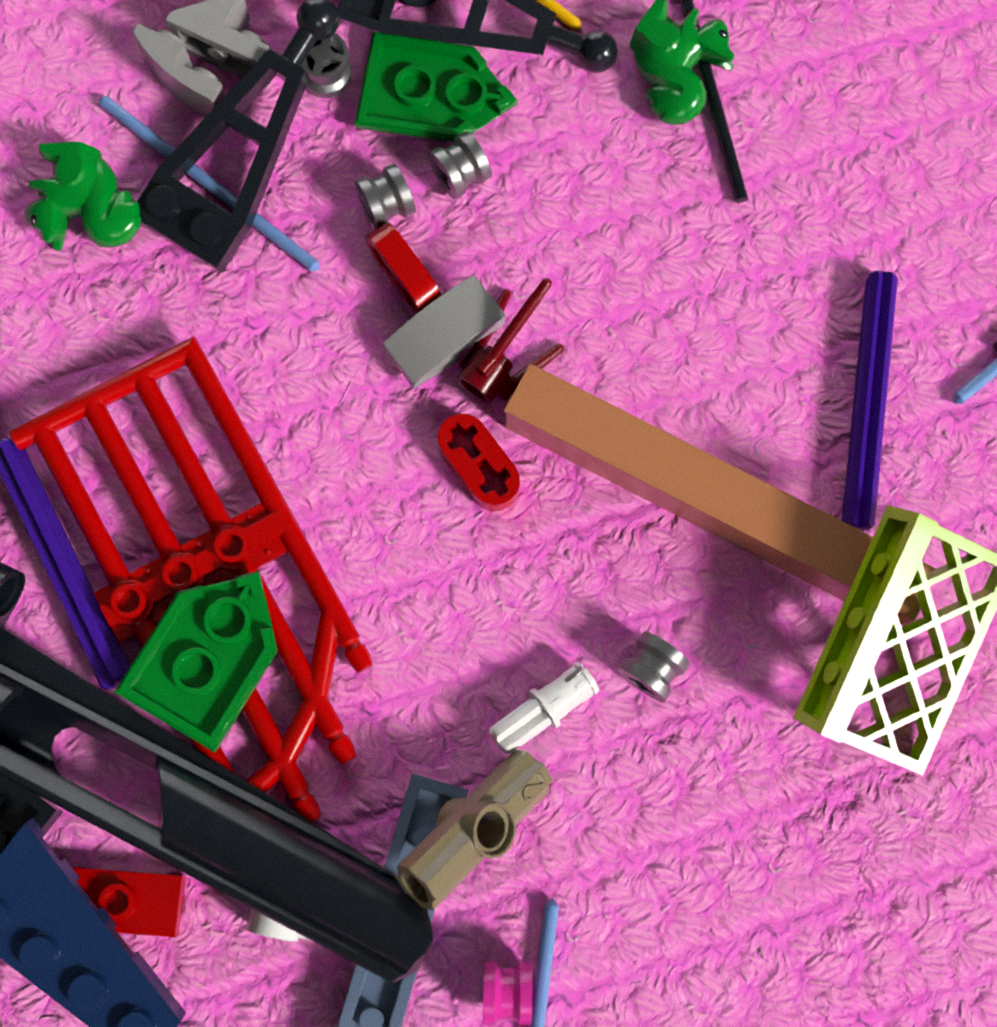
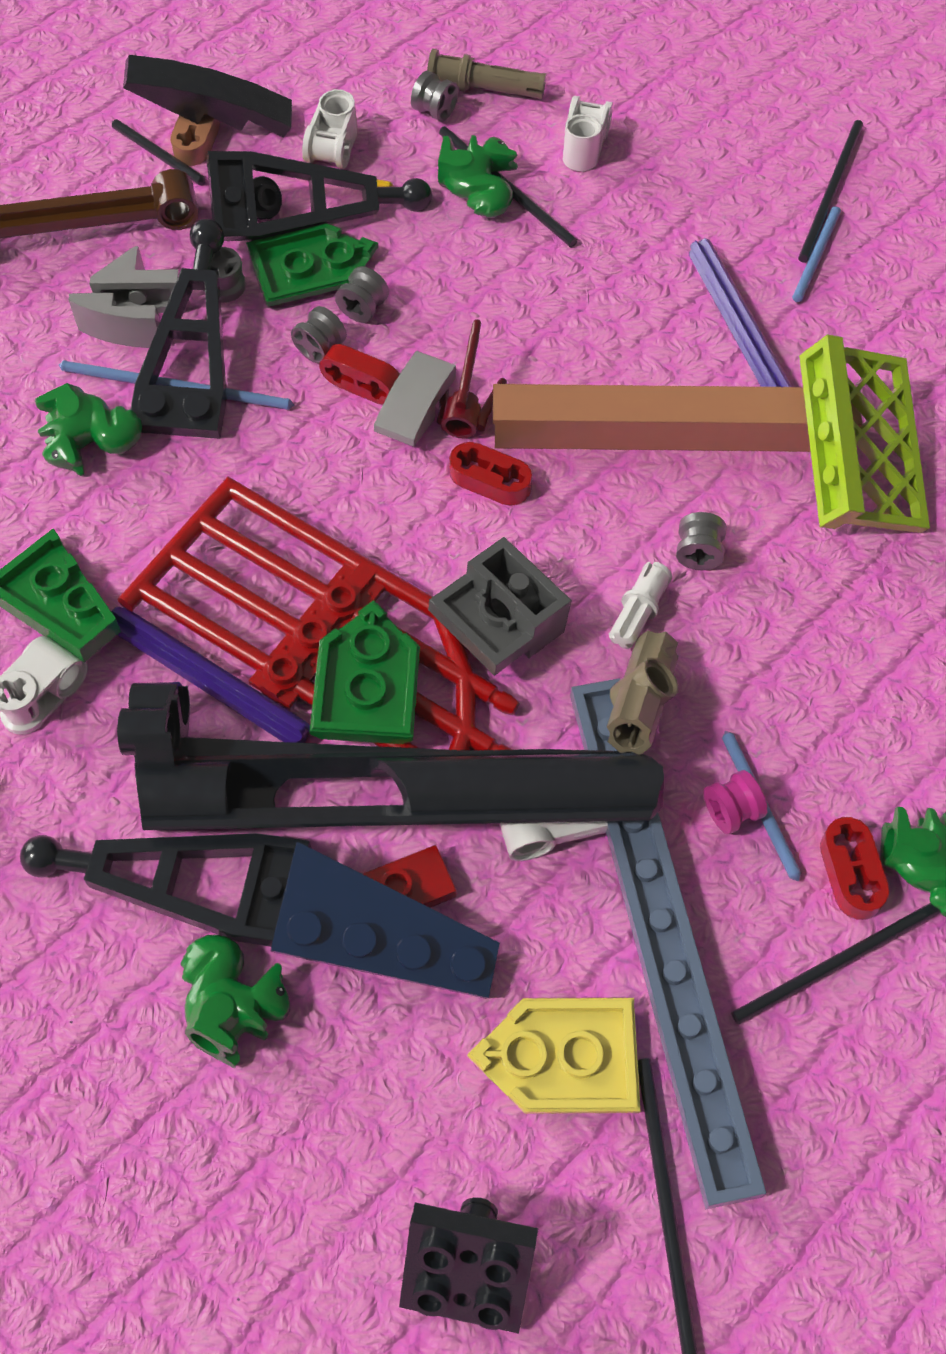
camera: 25 degrees left, 15 degrees down
(408, 643) = (502, 607): none -> dark grey brick
(843, 51) = (585, 133): none -> white piece

